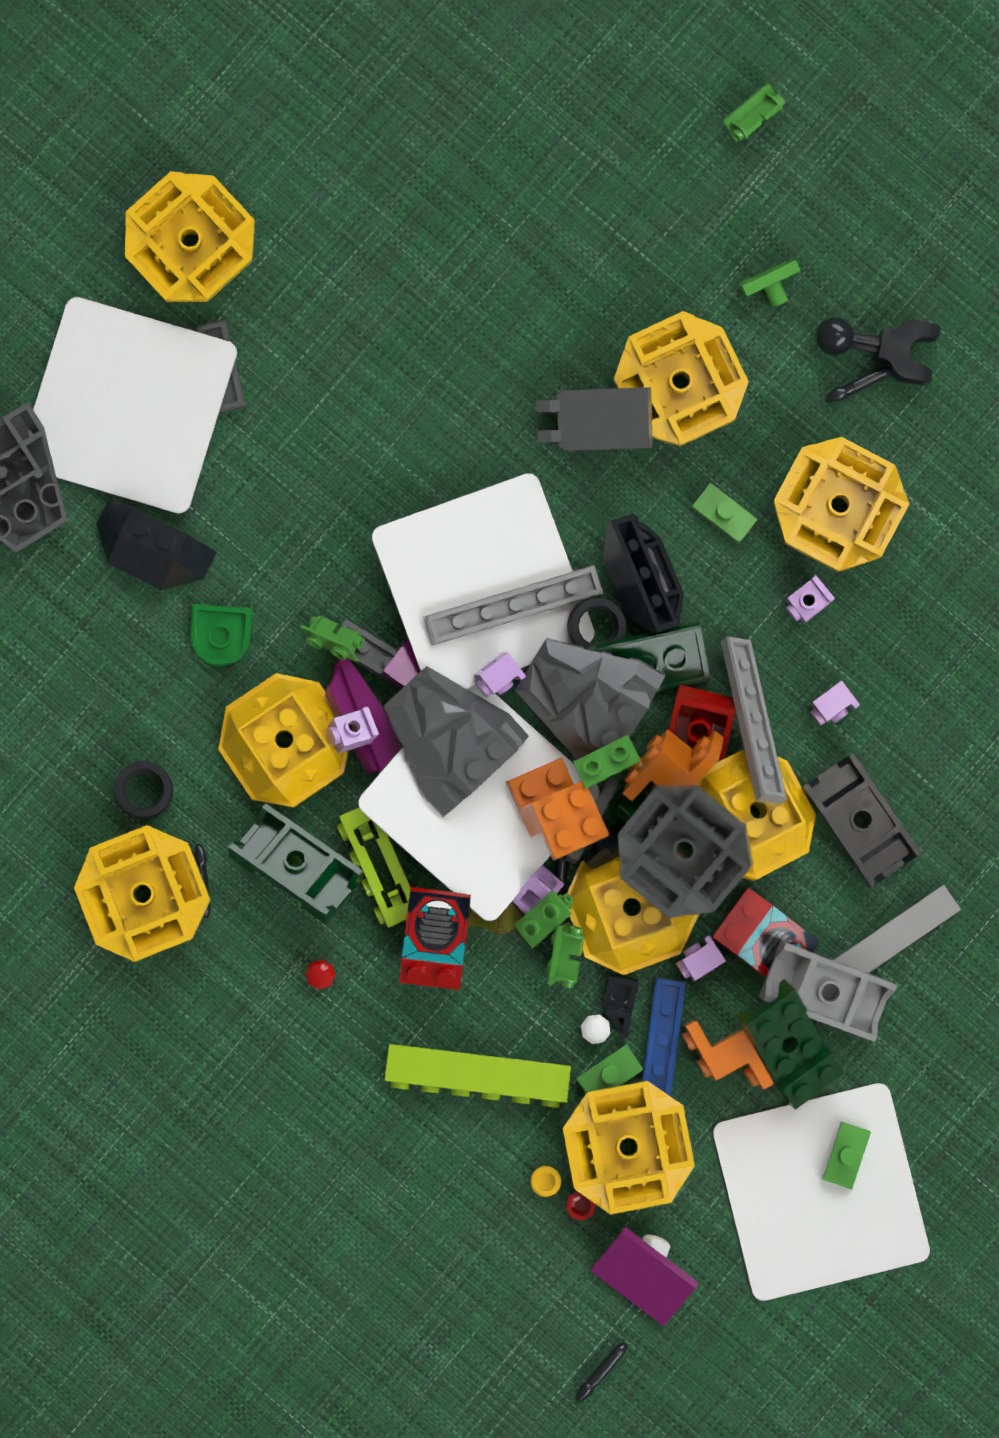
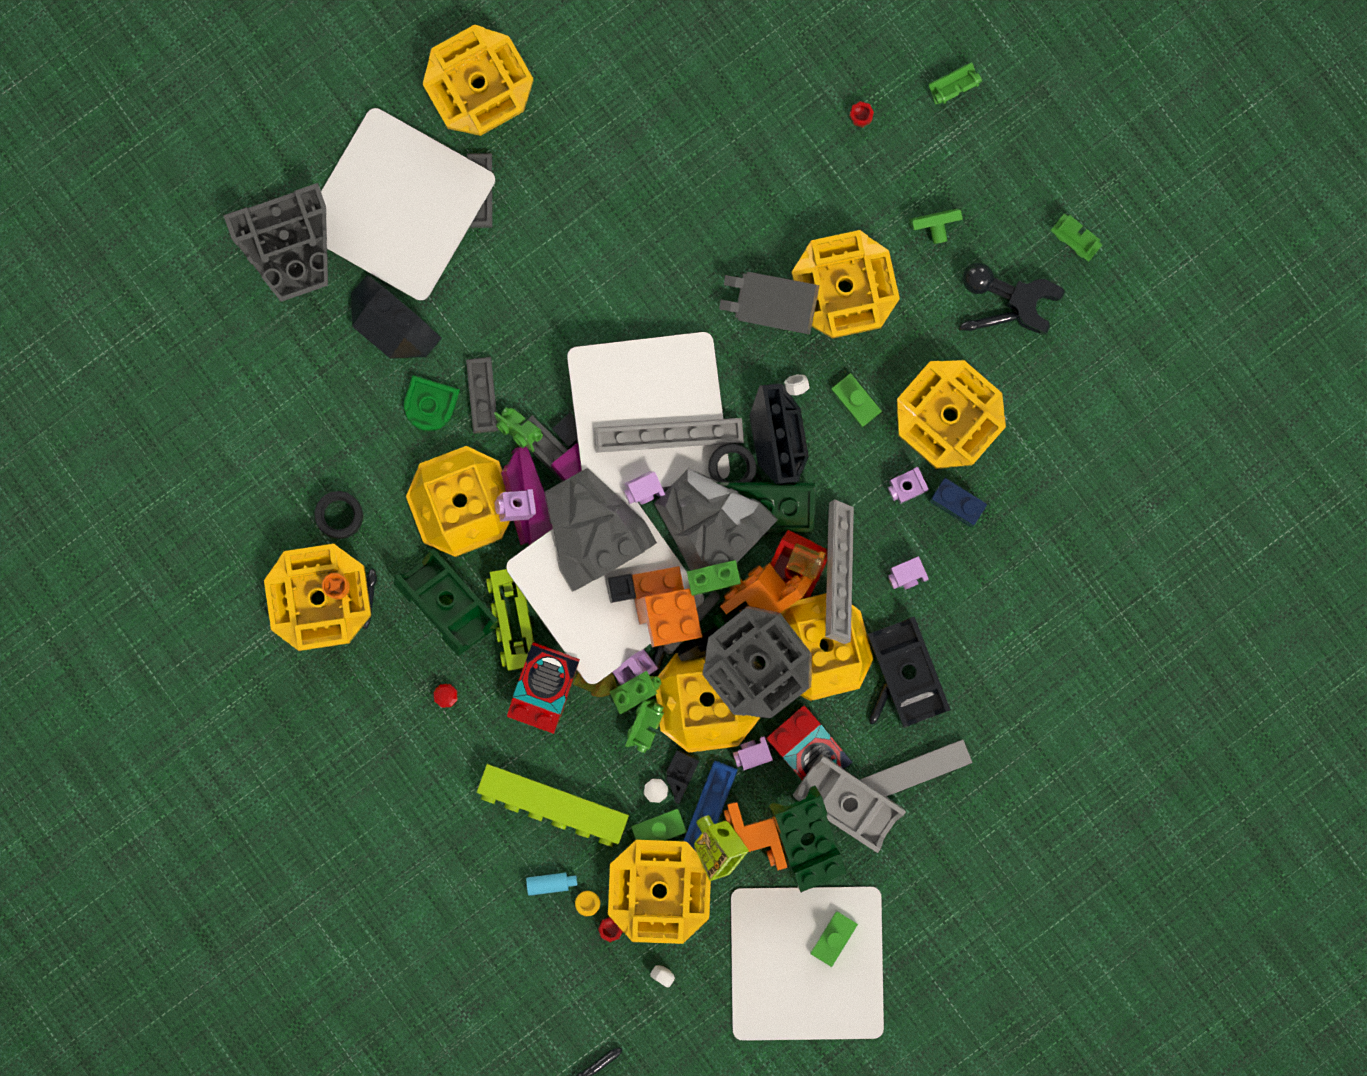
camera: 15 degrees right, 0 degrees up
(157, 876) = (331, 586): none -> orange wheel
(280, 608) = (482, 395): none -> dark grey tile
(391, 626) = (567, 430): none -> black tile
(496, 1168) = (550, 883): none -> medium azure cylinder
(499, 799) = (620, 588): none -> black tile
(644, 1276) = (648, 998): magenta tile -> none
(650, 511) = (796, 384): none -> white tile
(651, 173) = (861, 114): none -> red tile
(687, 1079) = (718, 848): none -> lime torso
(711, 717) = (806, 561): none -> clear yellow tile
(835, 865) = (879, 704): none -> black piece
(873, 606) = (958, 503): none -> dark blue brick
(927, 257) = (1067, 231): none -> bright green hinge

